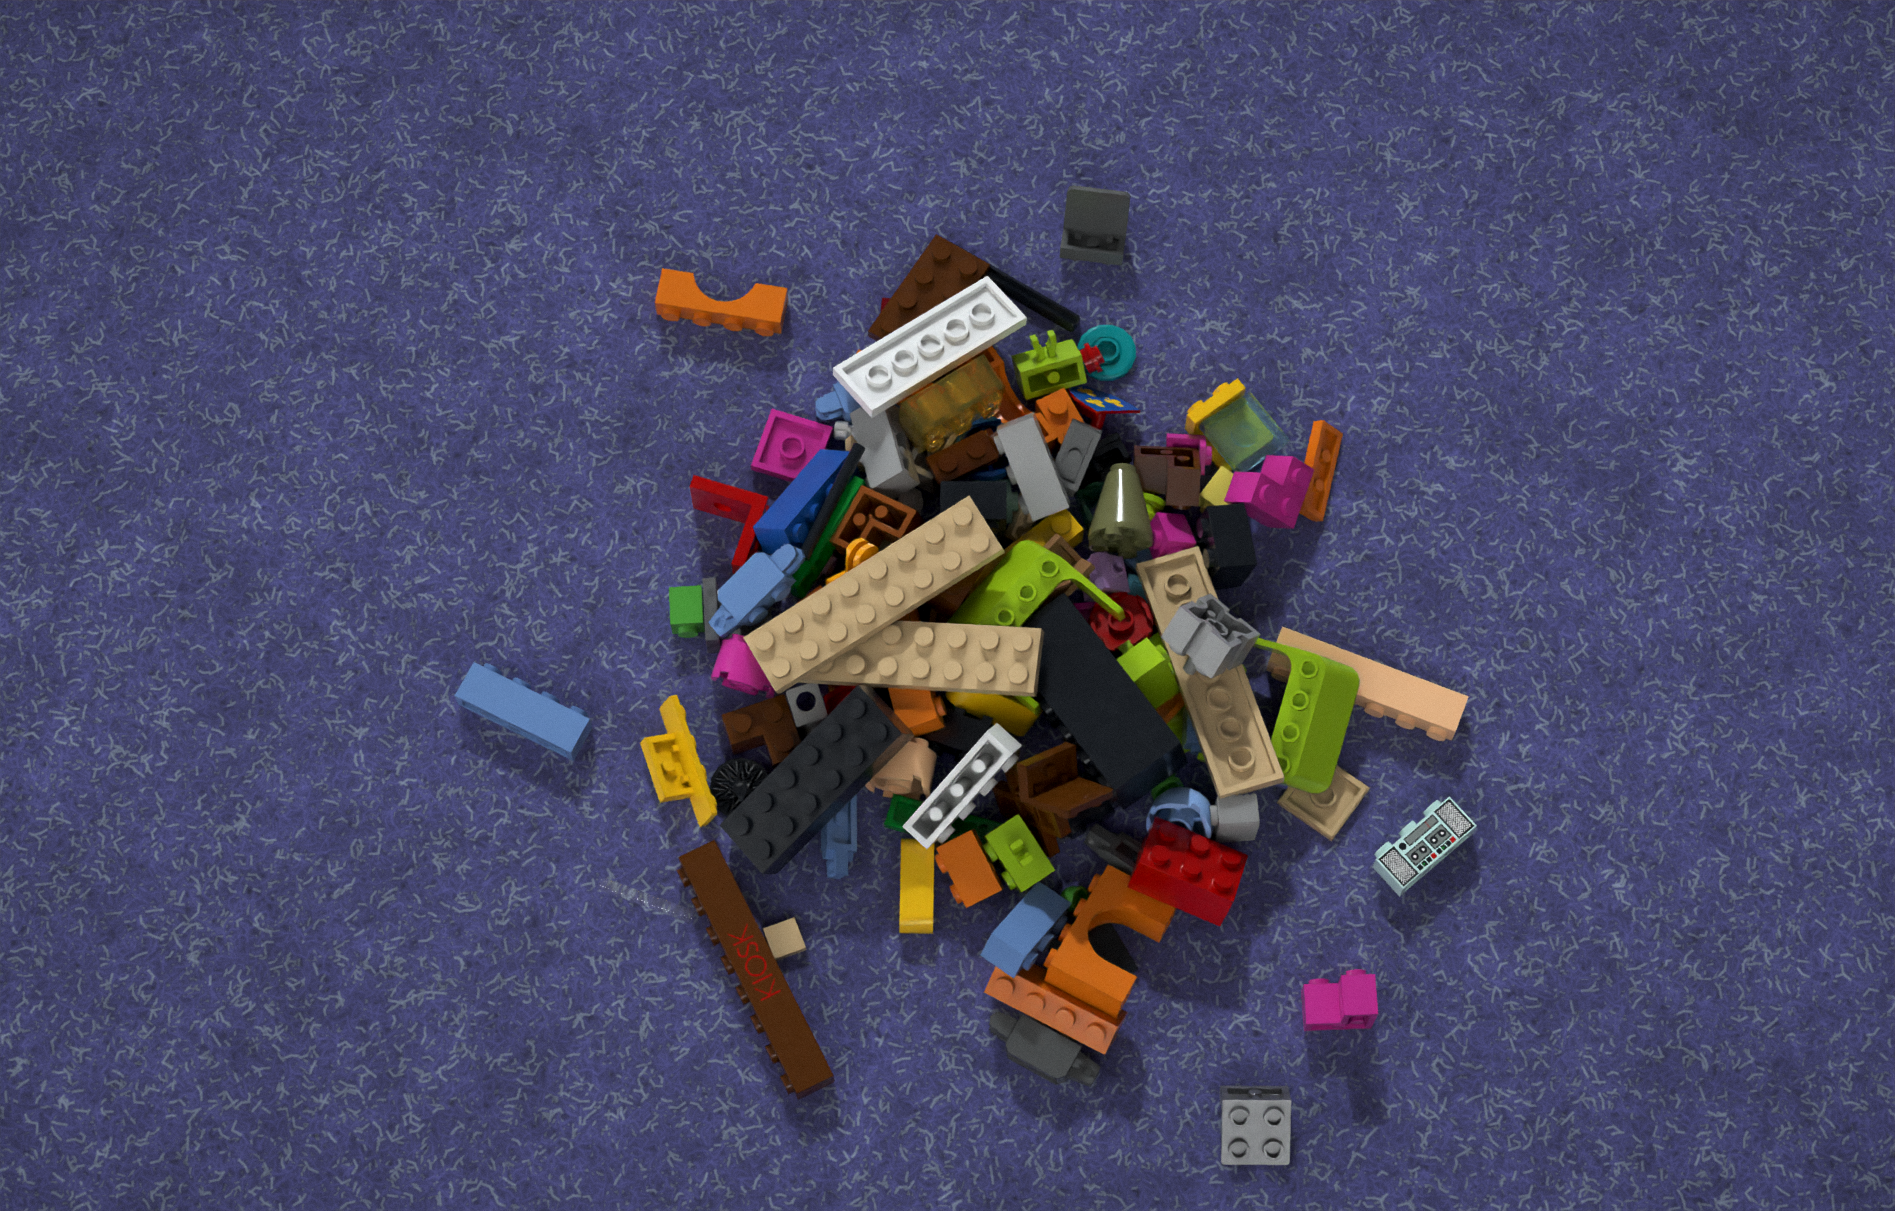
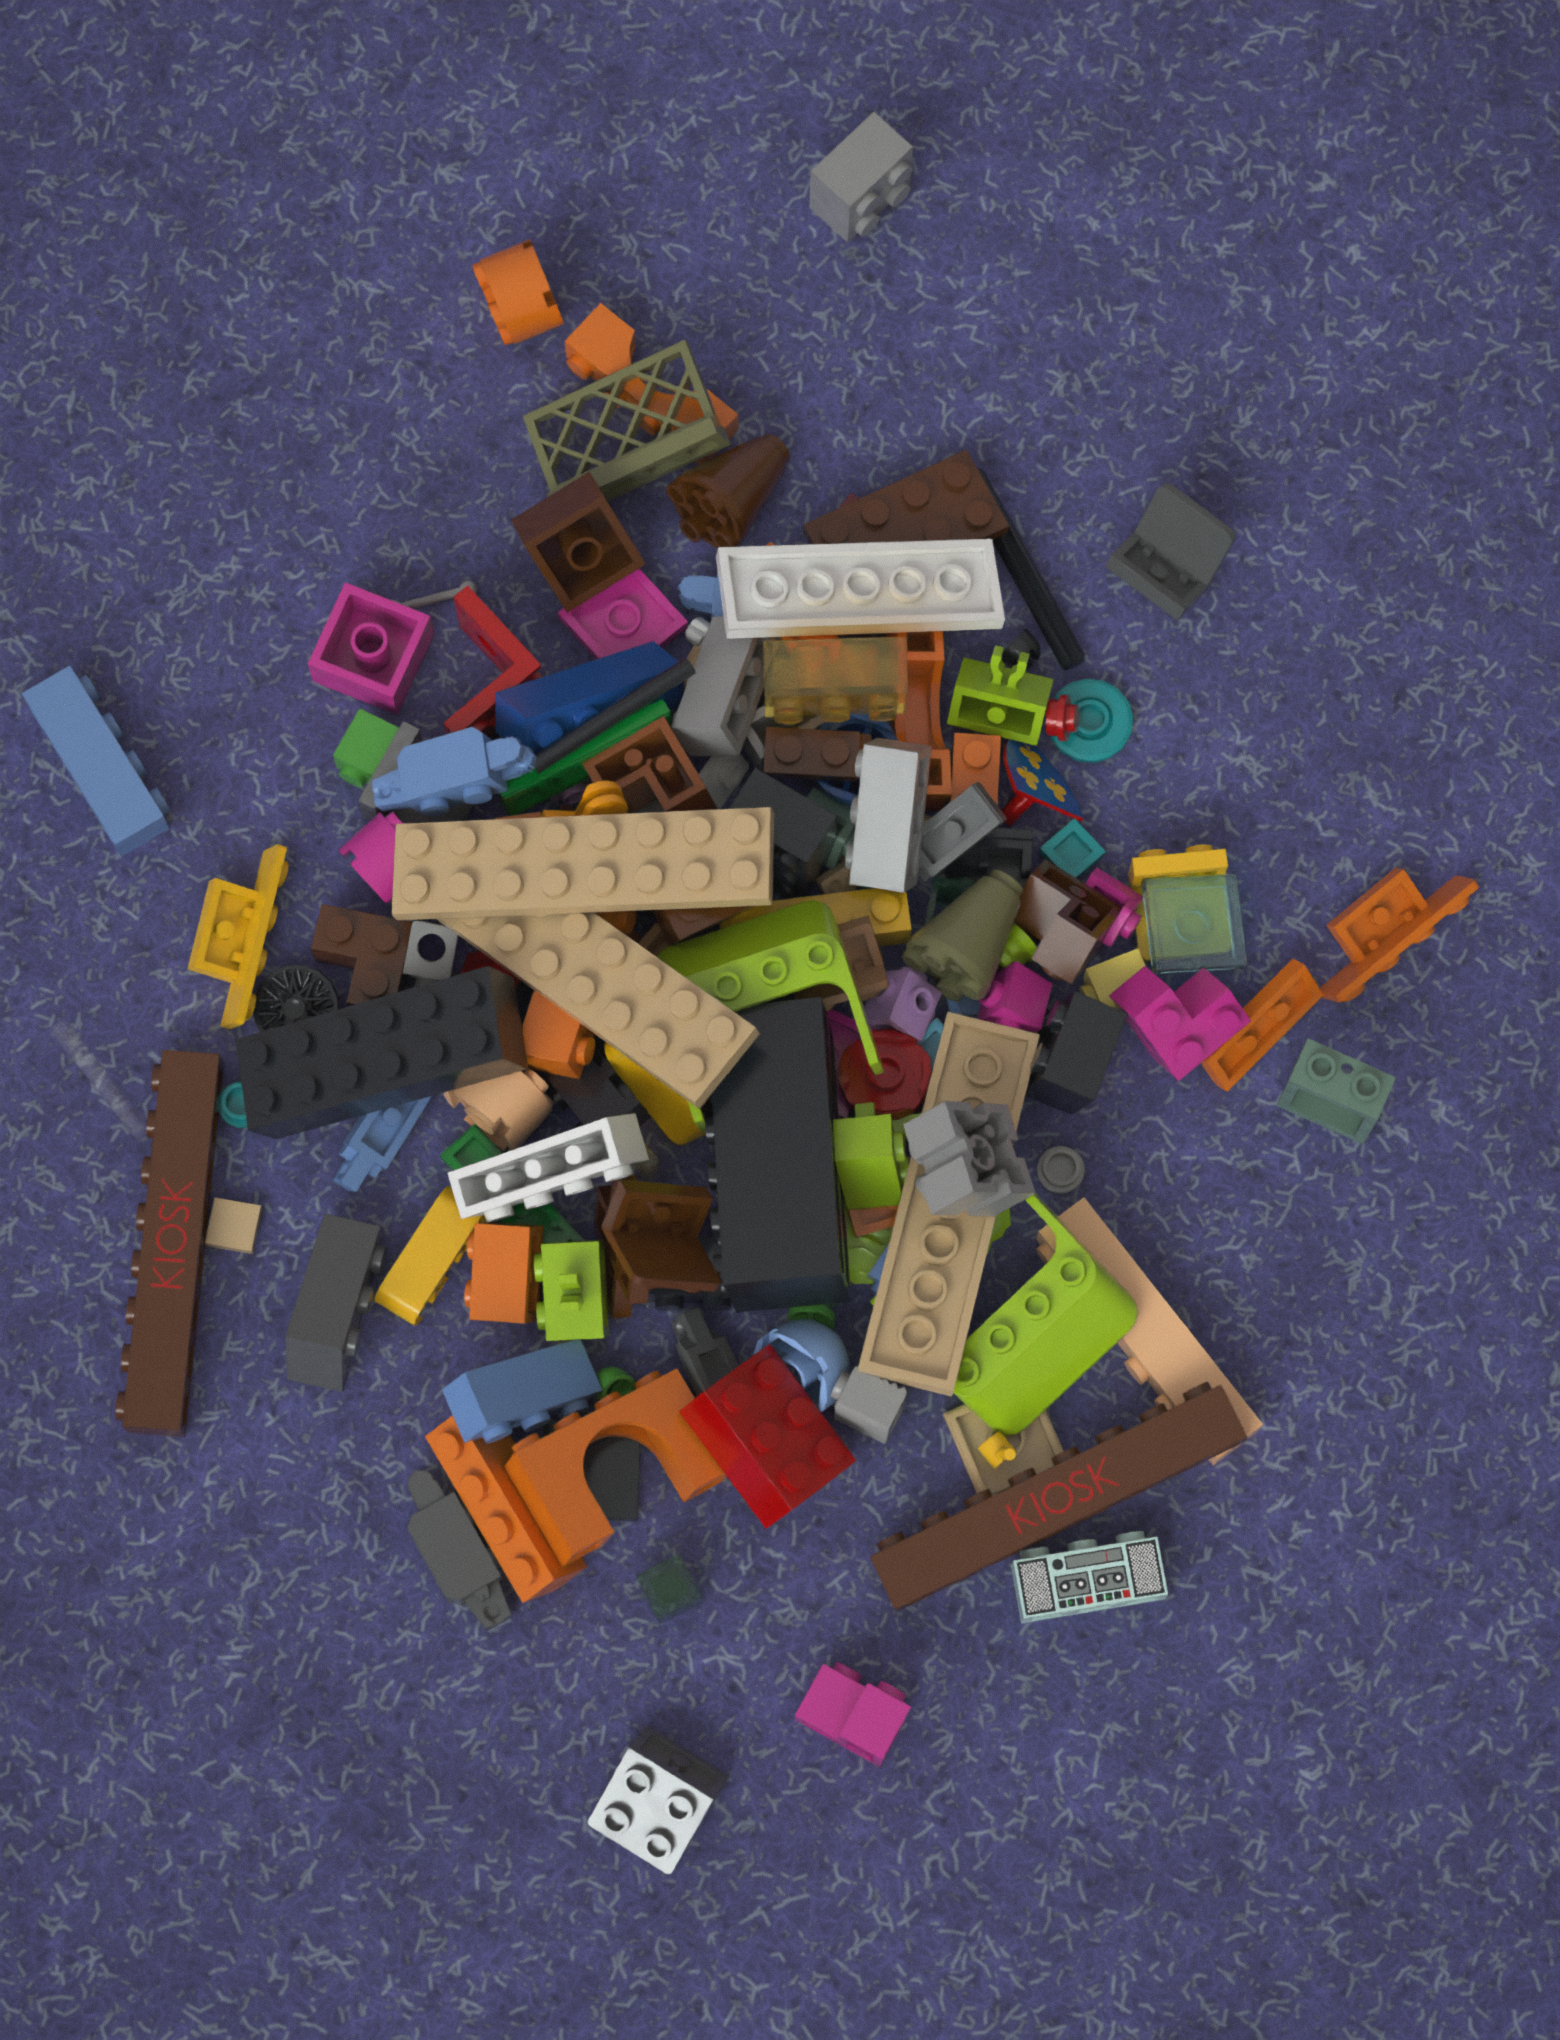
camera: 30 degrees right, 5 degrees up
(609, 288) = (517, 293): none -> orange brick
(647, 519) = (438, 597): none -> light grey hinge
(652, 549) = (371, 648): none -> dark pink brick
(740, 414) = (578, 542): none -> reddish brown brick
(741, 866) = (232, 1105): none -> teal plate
(747, 350) = (649, 460): none -> olive fence
(773, 110) = (861, 178): none -> light grey brick
(809, 338) = (728, 491): none -> reddish brown cone
(877, 946) = (332, 1302): none -> dark grey wedge
(1040, 330) = (1023, 643): none -> black hinge
(1145, 431) = (1073, 850): none -> teal plate
(1184, 996) = (669, 1589): none -> brick
(1258, 618) = (1060, 1169): none -> light grey plate
(1324, 802) = (997, 1449): none -> yellow hand
(1354, 371) = (1387, 923): none -> orange bracket
(1378, 807) = (1058, 1497): none -> reddish brown brick
(1404, 481) = (1334, 1099): none -> sand green window

